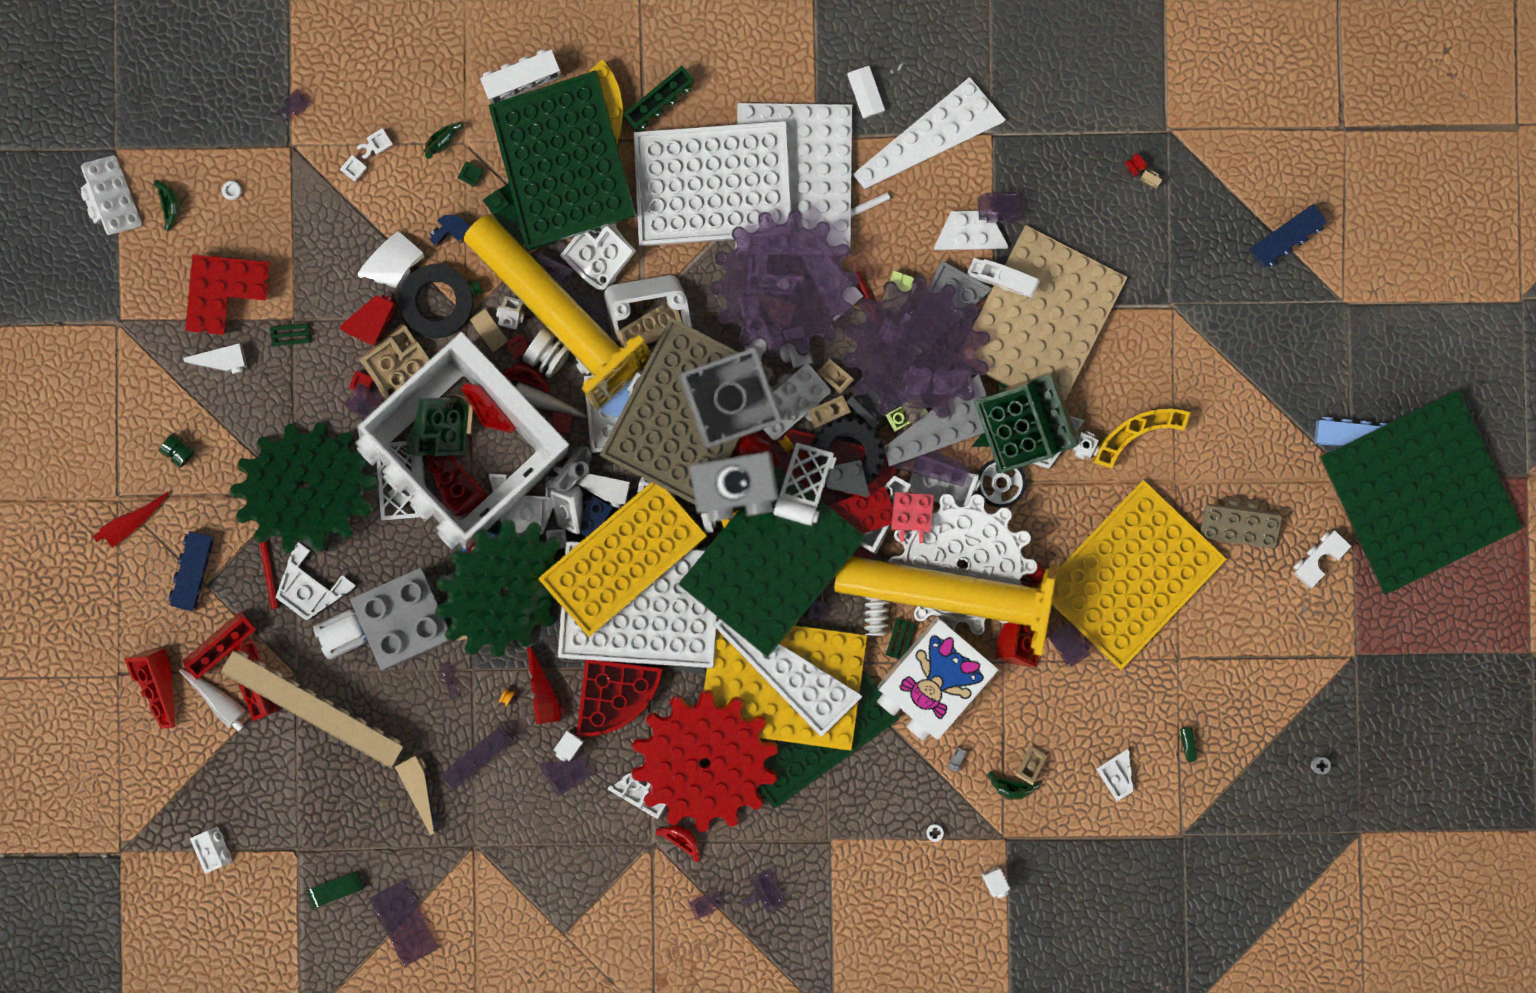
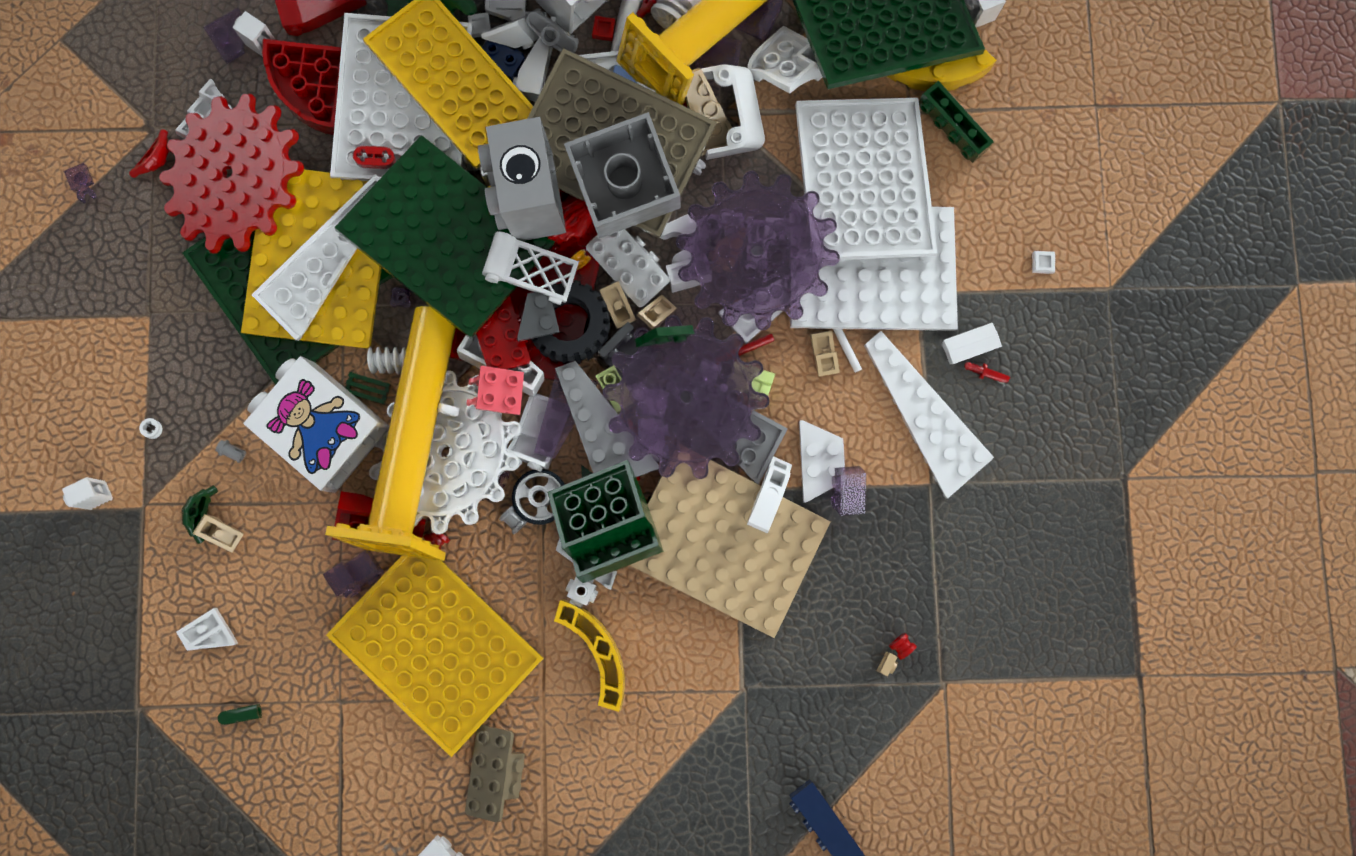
camera: 80 degrees right, 5 degrees down
(691, 627) = (374, 152): none -> red beam
(766, 892) = (91, 245): clear purple plate -> none
(789, 23) = (1043, 262): none -> white tile
(866, 368) = (664, 335): none -> dark green wing
(872, 225) = (824, 353): none -> tan slope
(890, 82) = (984, 371): none -> red piece
(927, 558) = (448, 409): none -> white tile
(1021, 506) = (513, 520): none -> light grey bush

